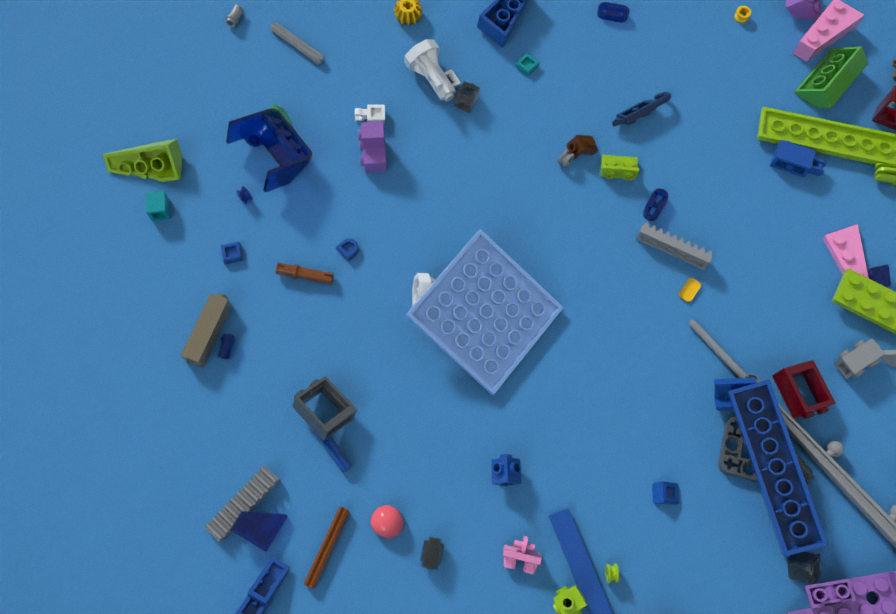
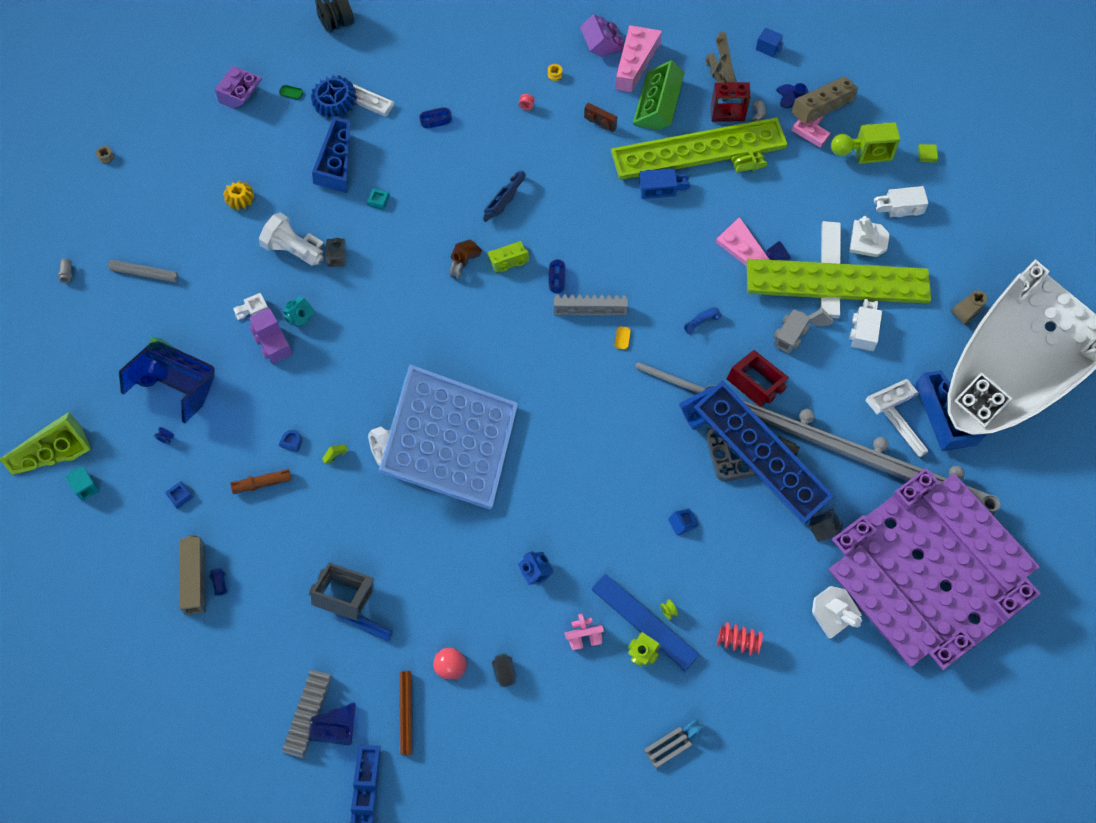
camera: 25 degrees left, 5 degrees down
(379, 276) = (334, 451): none -> lime tile
(408, 136) = (298, 311): none -> teal brick
(703, 31) = (526, 102): none -> coral bush
(766, 73) = (600, 117): none -> copper plate
(788, 305) = (698, 320): none -> blue arm

